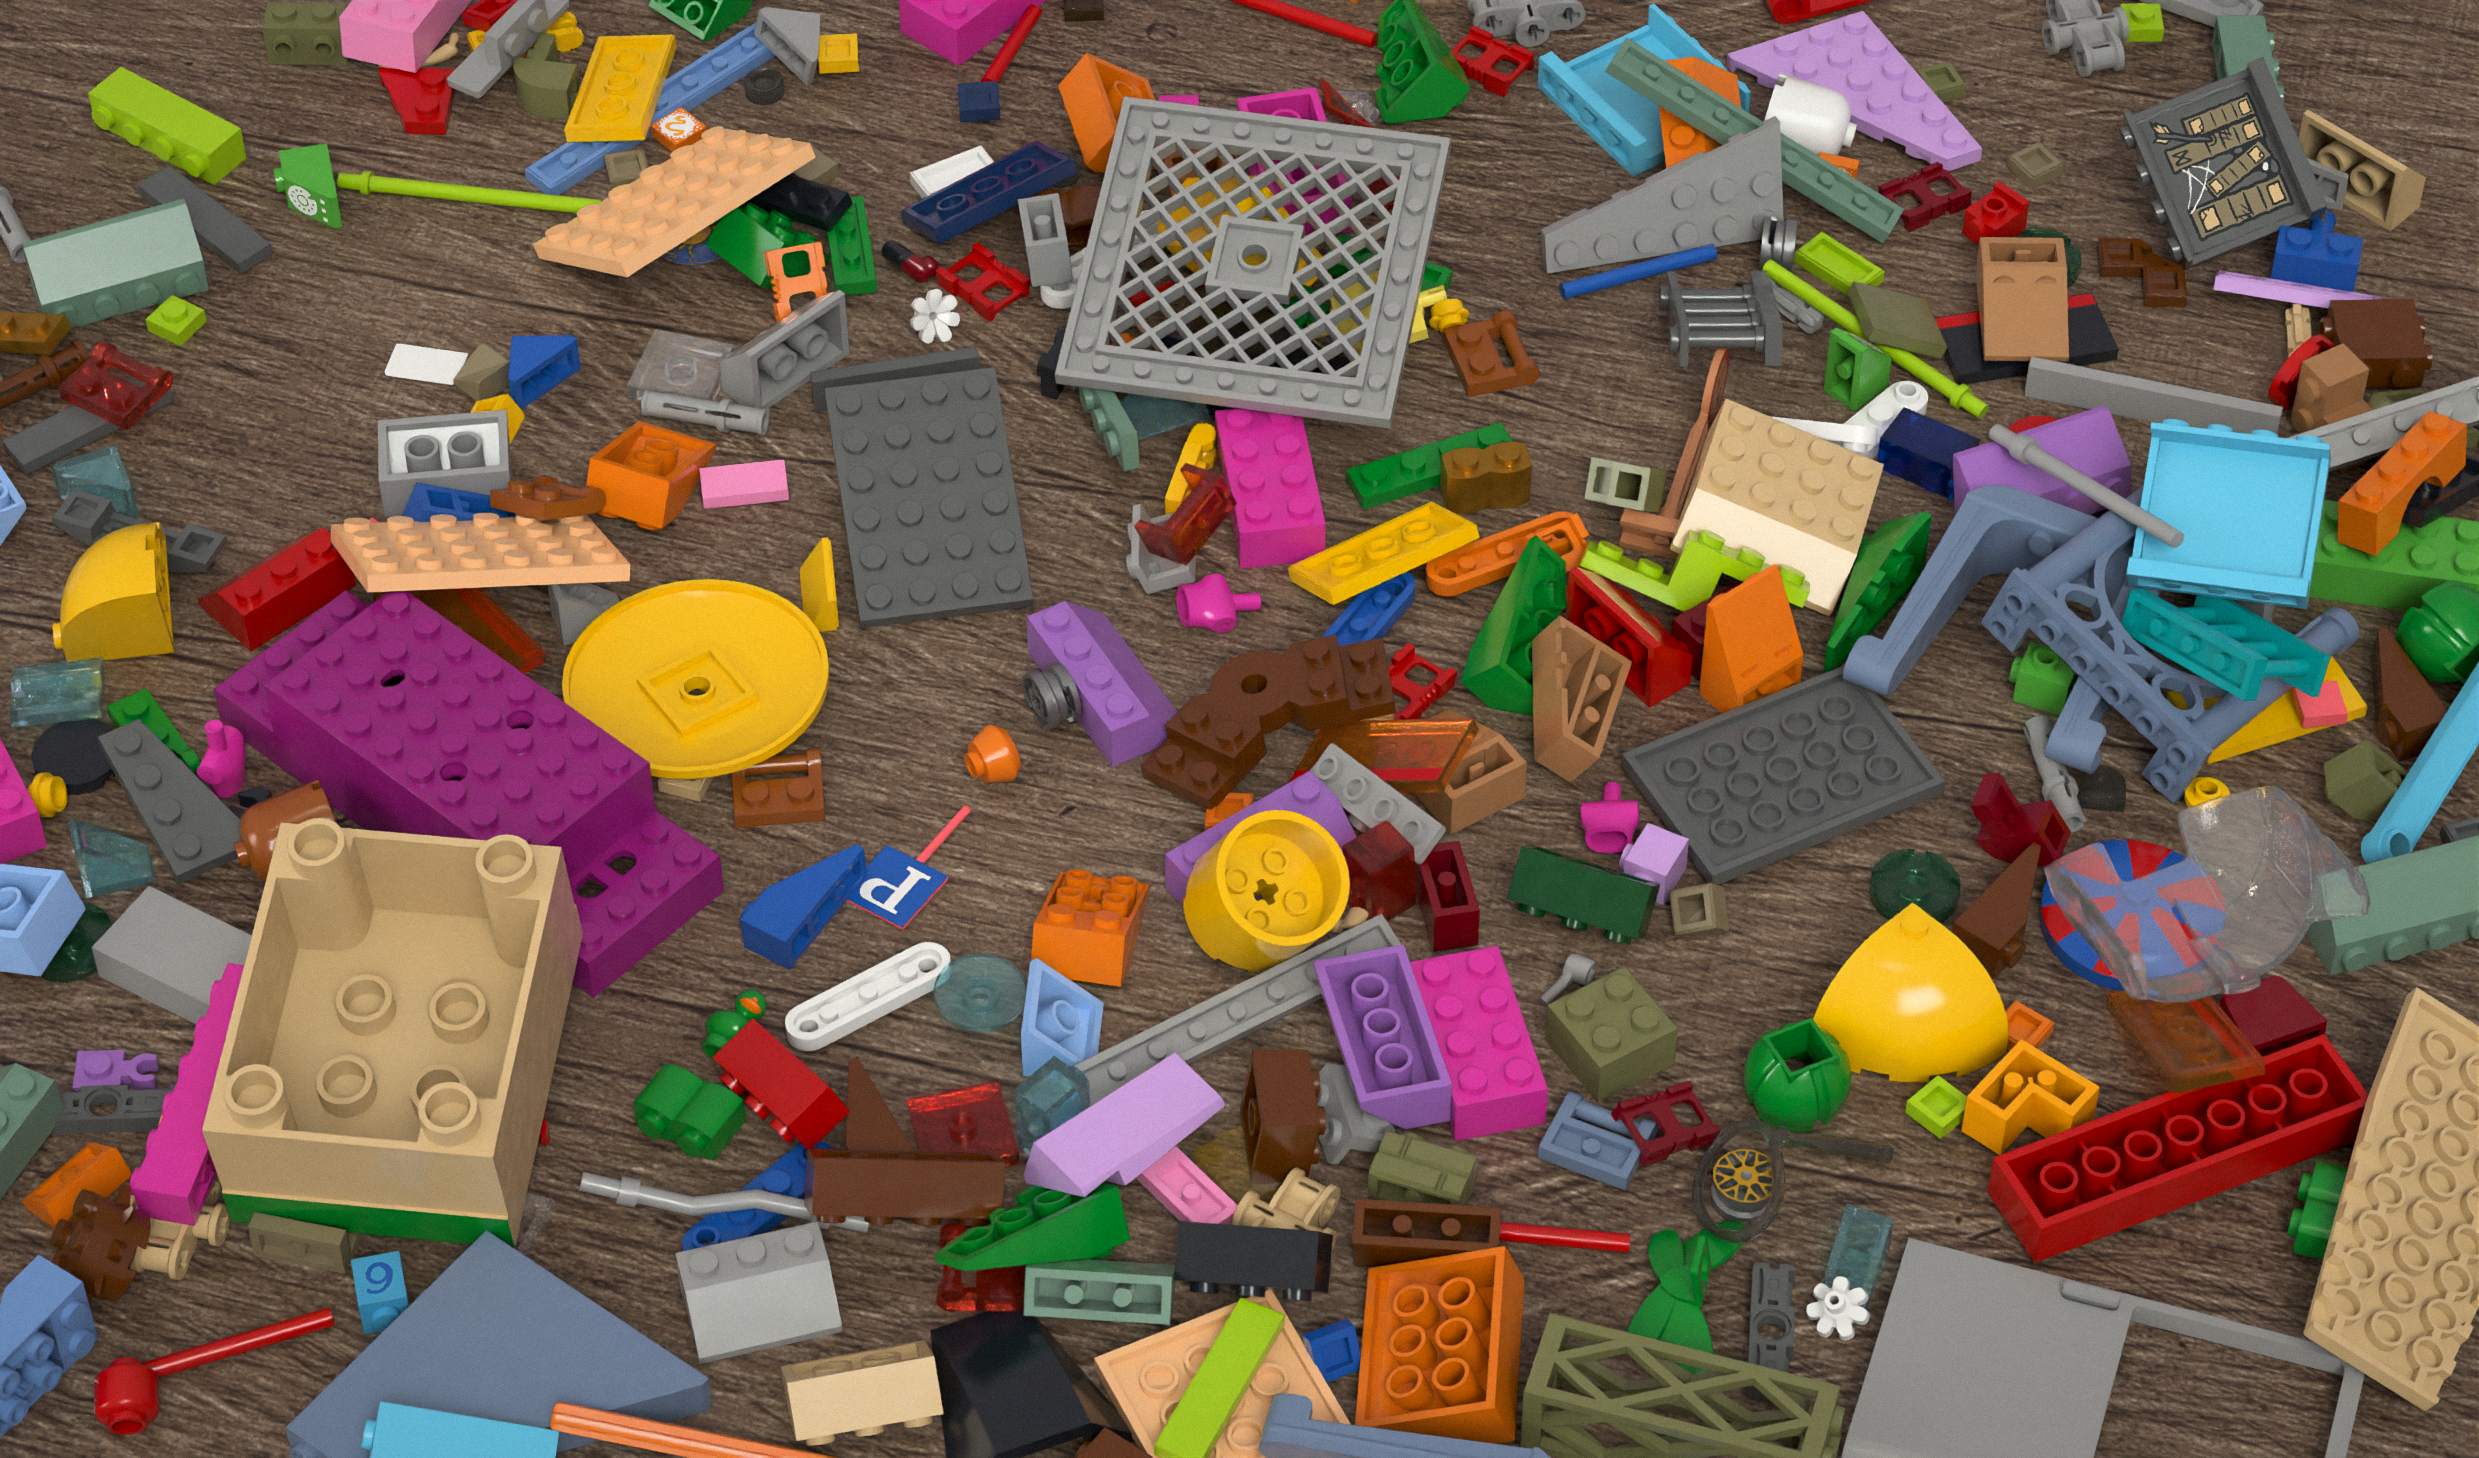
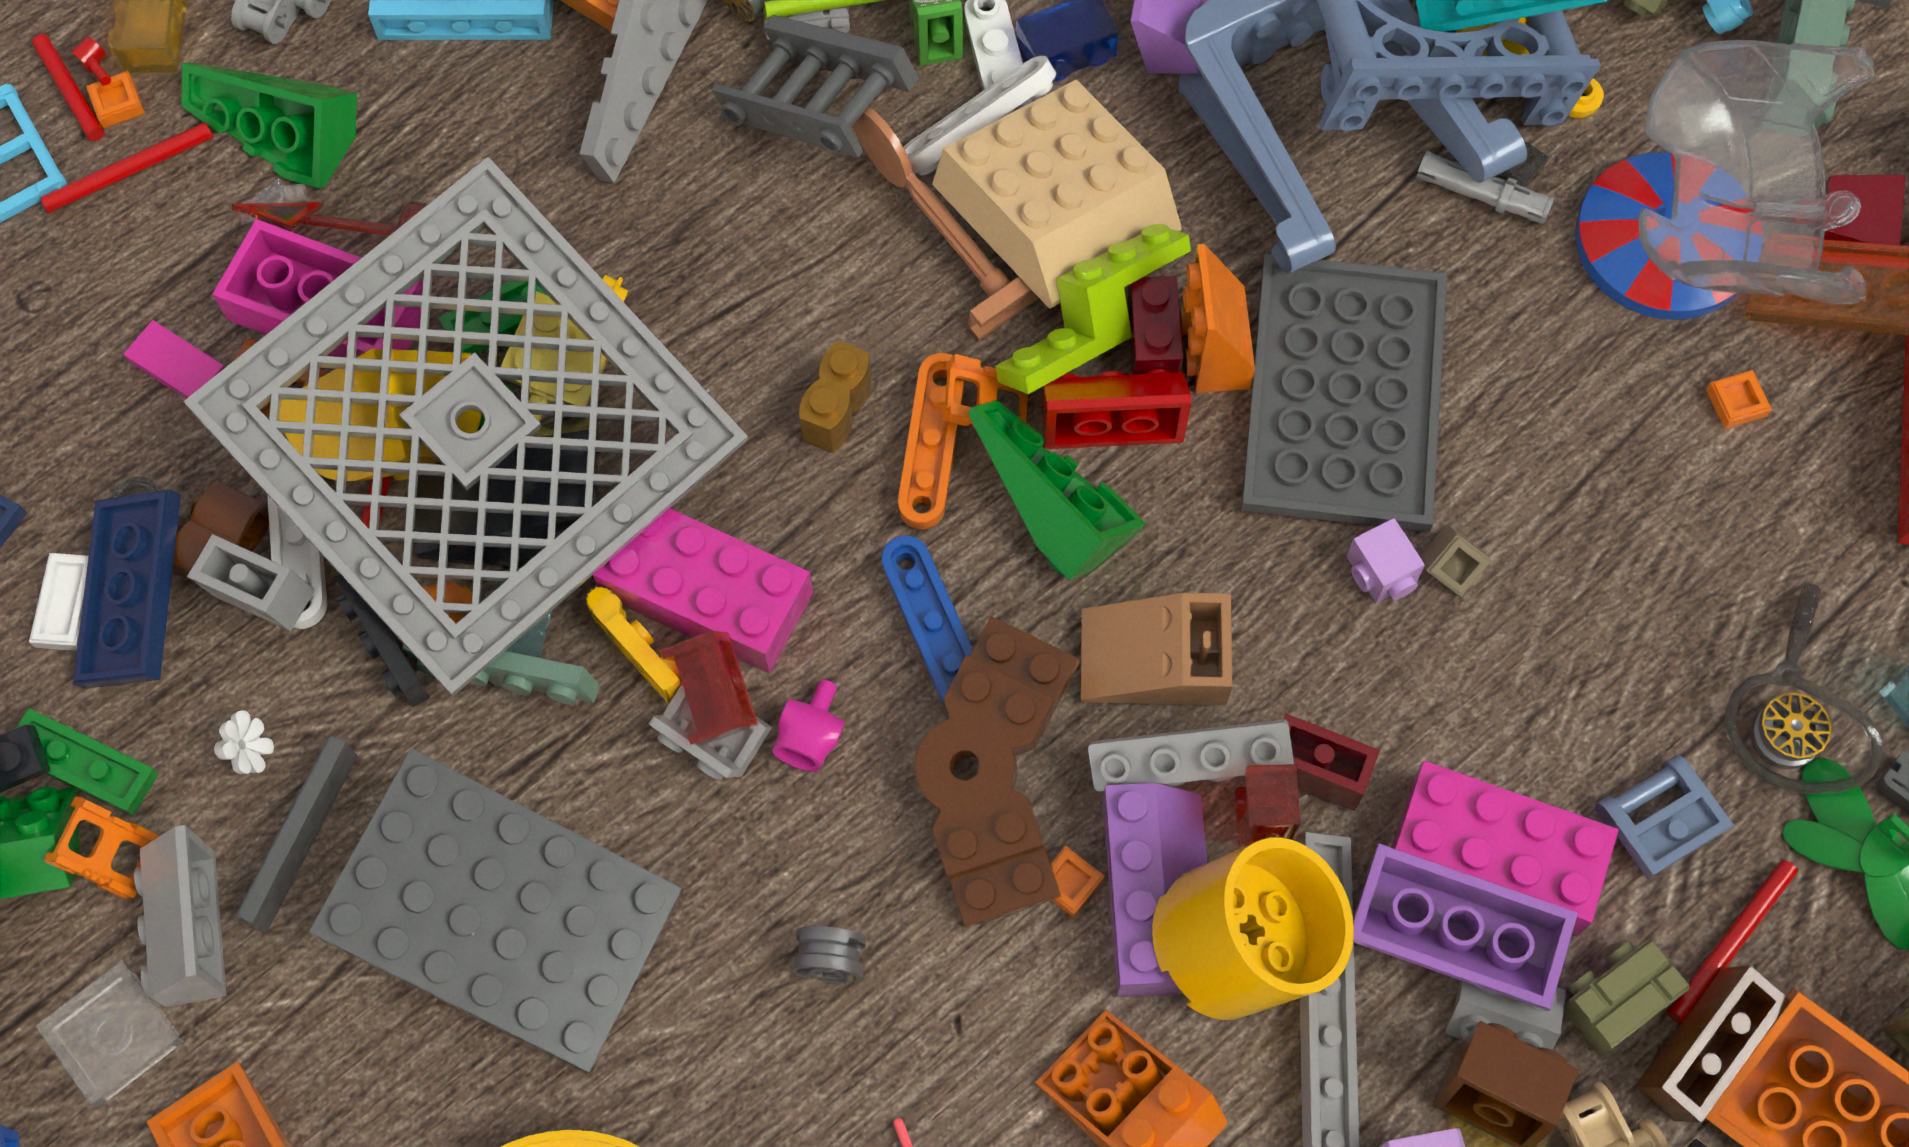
camera: 55 degrees left, 20 degrees up
(744, 484) = (314, 1069): bright pink tile -> none
(751, 420) = (172, 1062): light grey pin -> none
(819, 587) = (516, 1085): yellow slope -> none
(910, 263) = (147, 721): arm -> none
(992, 756) = (861, 1059): orange cone -> none
(994, 274) = (229, 652): red piece -> none
(1094, 100) = (120, 413): orange slope -> none
(1117, 695) = (834, 883): medium lavender slope -> none
(1383, 552) = (862, 543): yellow tile -> none
(1403, 753) = (1145, 689): clear orange tile -> none
(1414, 469) = (773, 430): green plate -> none
(1419, 696) = (1044, 622): red piece -> none
(1478, 361) = (675, 306): dark orange plate -> none
(1494, 52) = (314, 41): red piece -> none
(1573, 696) = (1167, 502): medium nougat wedge -> none
(1576, 969) = (1454, 706): light grey hand -> none
(1583, 893) = (1389, 642): dark green brick -> none
(1610, 822) = (1306, 562): dark pink piece -> none
(1611, 1034) = (1561, 727): olive brick -> none
(1625, 485) = (944, 284): olive brick -> none
(1638, 271) = (672, 111): blue piece -> none
(1675, 1136) = (1671, 746): dark red piece -> none
(1803, 1095) = (1700, 634): green piece -> none
(1881, 576) = (1178, 140): green wedge -> none
(1914, 878) = (1533, 375): clear green tile -> none
(1914, 1003) = (1688, 470): yellow brick -> none
(1937, 1107) = (1793, 518): lime plate -> none
(1998, 918) = (1619, 328): reddish brown slope -> none
(2012, 827) = (1537, 254): dark red brick -> none
(2027, 1092) = (1837, 446): light orange brick -> none
(2042, 679) = (1387, 128): bright green brick -> none

